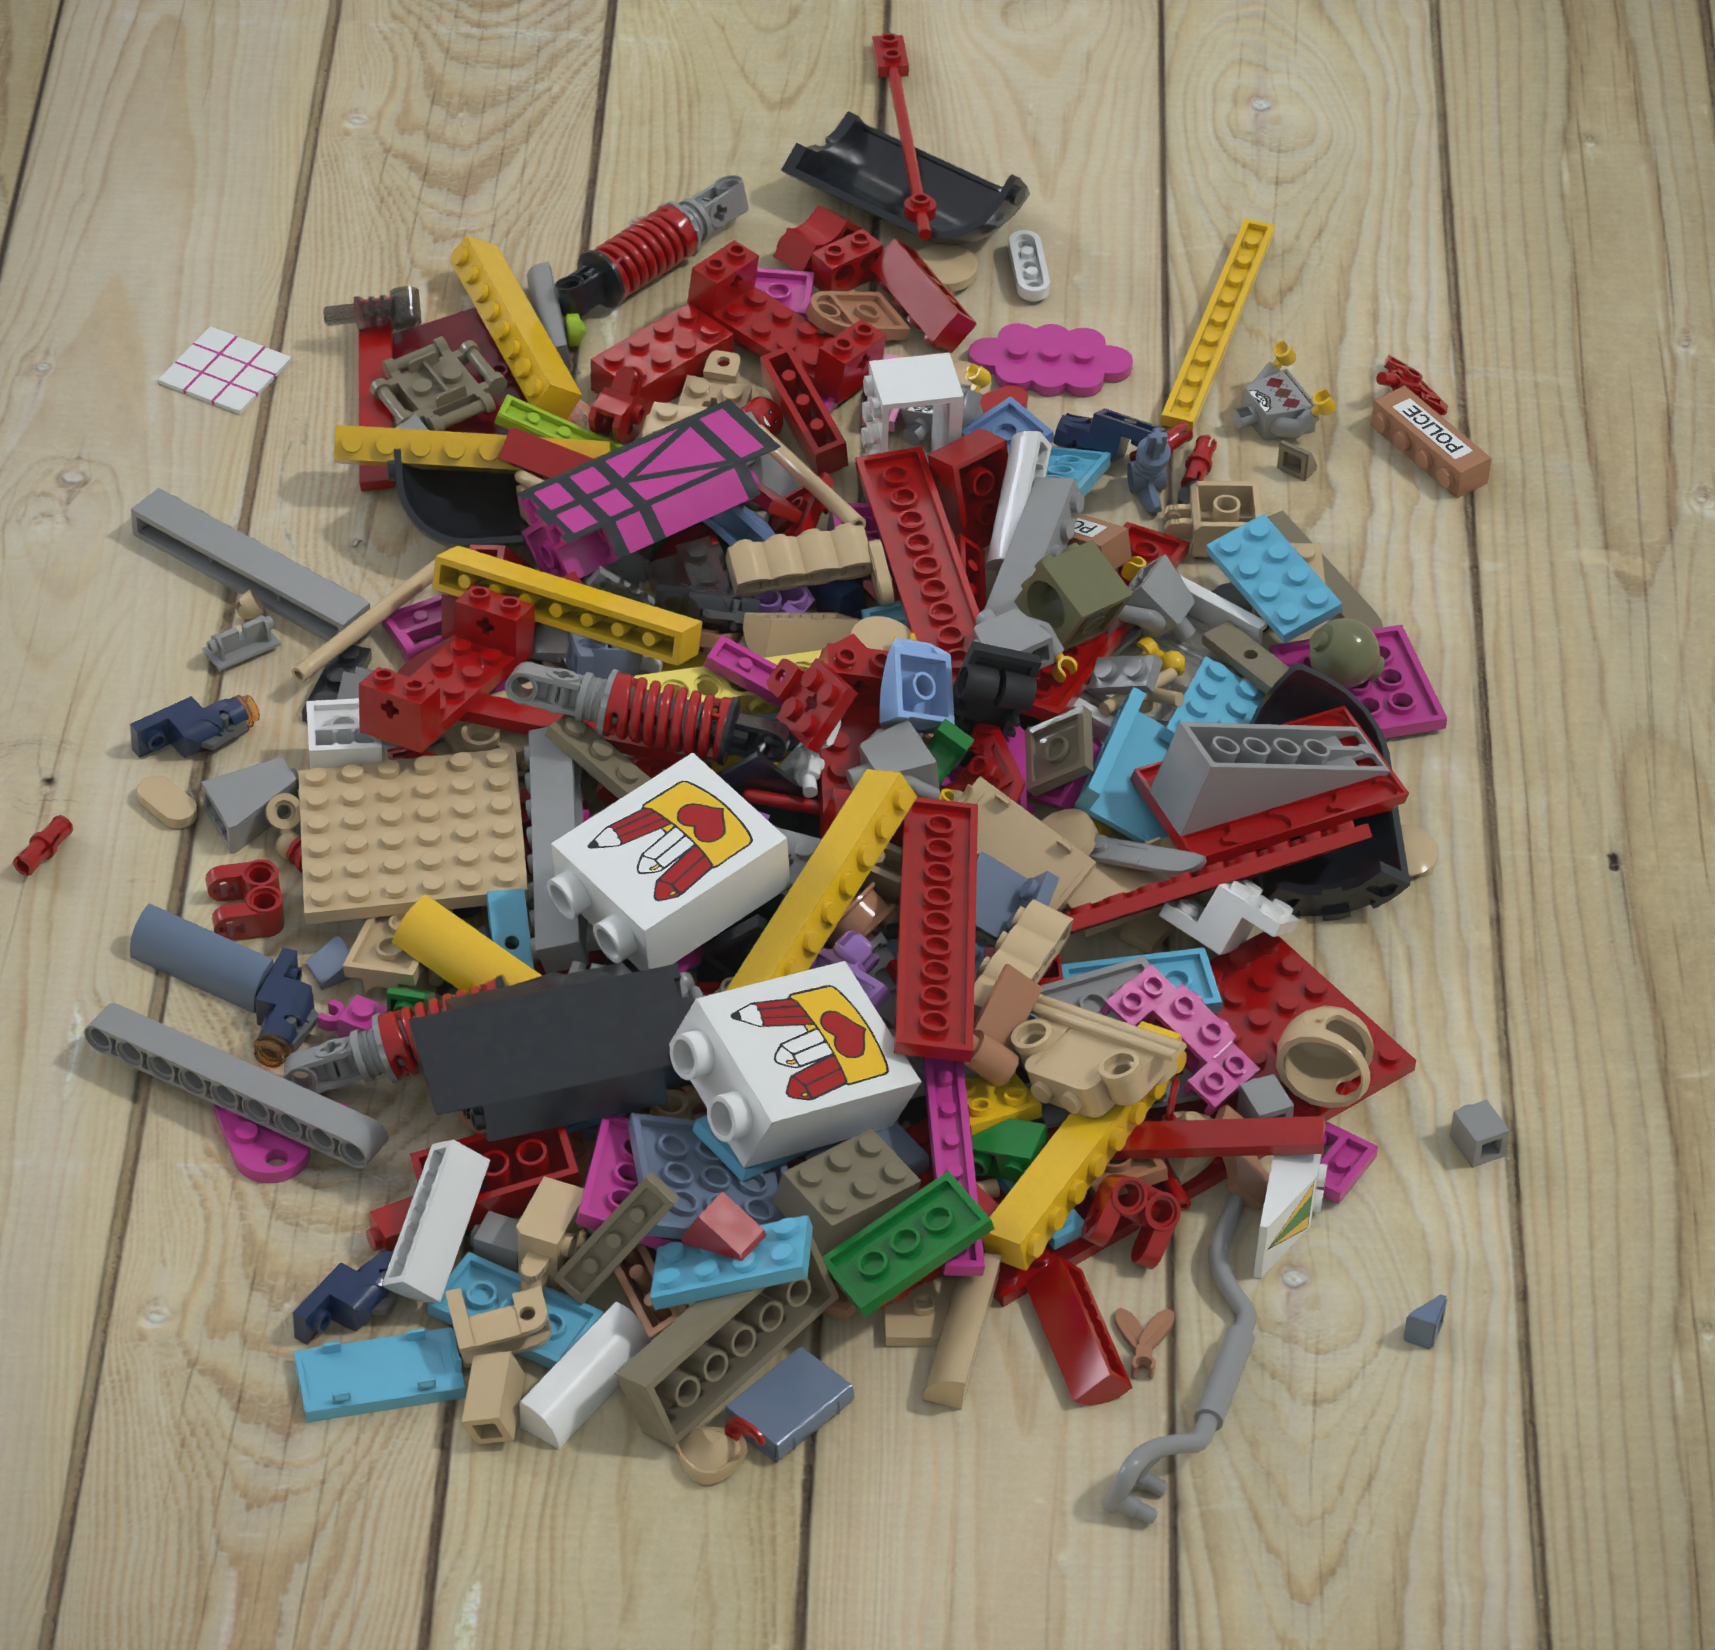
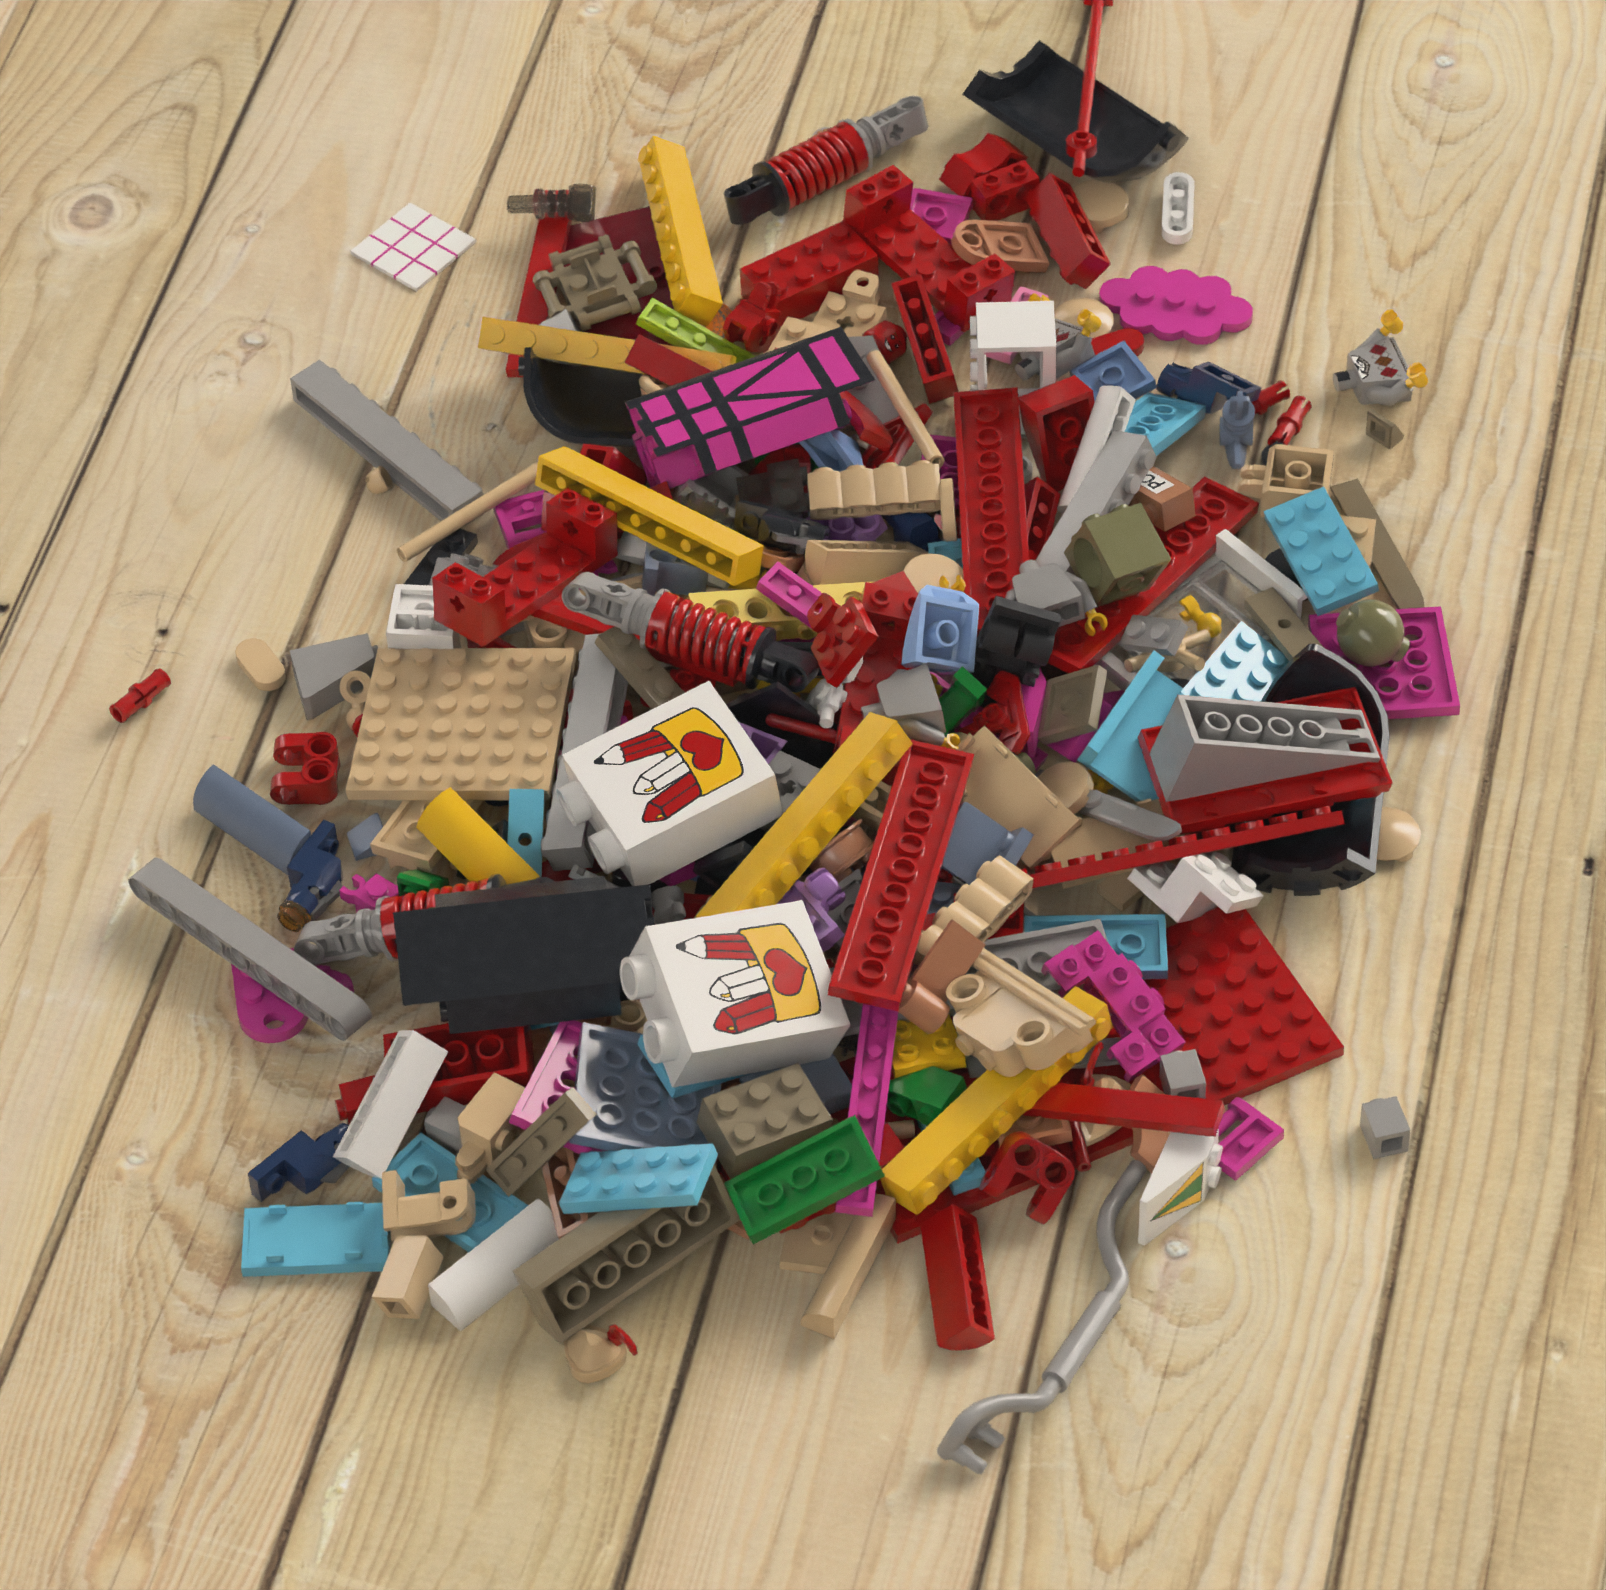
camera: 15 degrees right, 5 degrees up
(194, 728) = (298, 595): dark blue plate -> none
(235, 646) = (353, 521): light grey hinge -> none
(547, 308) = (717, 220): light grey brick -> none
(574, 329) = (737, 236): lime tile -> none
(724, 1230) = (633, 1149): slope -> none
(791, 1402) = (675, 1315): sand blue piece -> none
(1146, 1339) = (1020, 1292): nougat piece -> none
(1158, 598) = (1205, 560): light grey torso -> none
(1218, 324) = (1343, 283): yellow plate -> none
(1322, 1051) = (1246, 1032): tan piece -> none
(1403, 375) = (1510, 359): red piece -> none
(1426, 1322) = (1286, 1310): sand blue slope -> none
(1430, 441) = (1516, 422): nougat brick -> none

